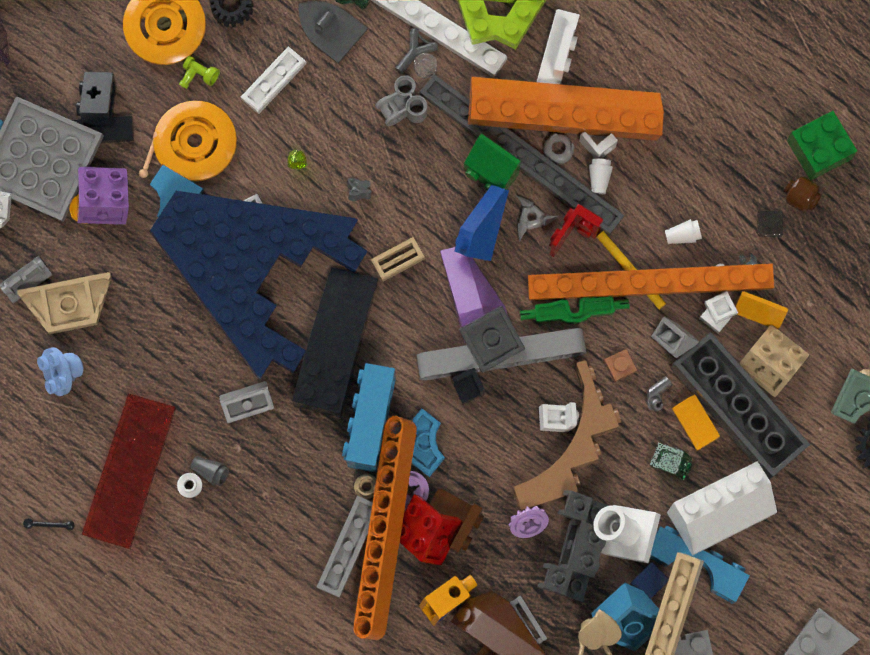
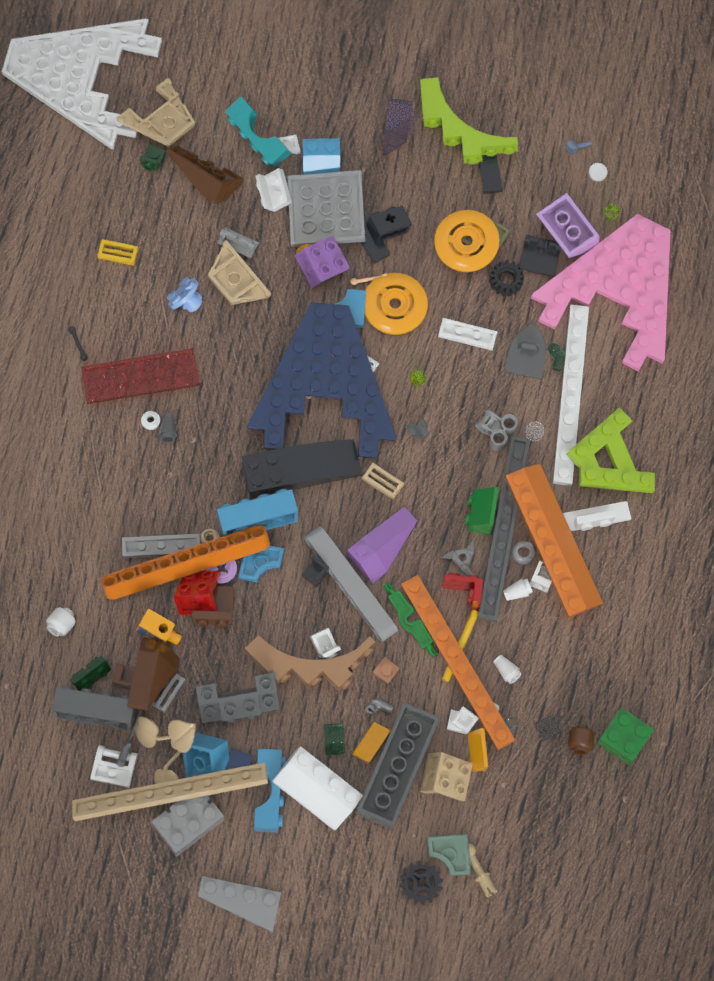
camera: 55 degrees right, 5 degrees down
(209, 75) = (446, 290): lime piece -> none
(246, 402) = (228, 429): light grey slope -> none
(414, 50) = (542, 419): dark grey piece -> none
(481, 228) = (430, 524): blue slope -> none
(491, 339) = (355, 568): dark grey tile -> none
(531, 527) = (237, 664): lavender gear -> none
(627, 532) = (266, 728): white plant -> none
(673, 337) = (425, 696): light grey slope -> none

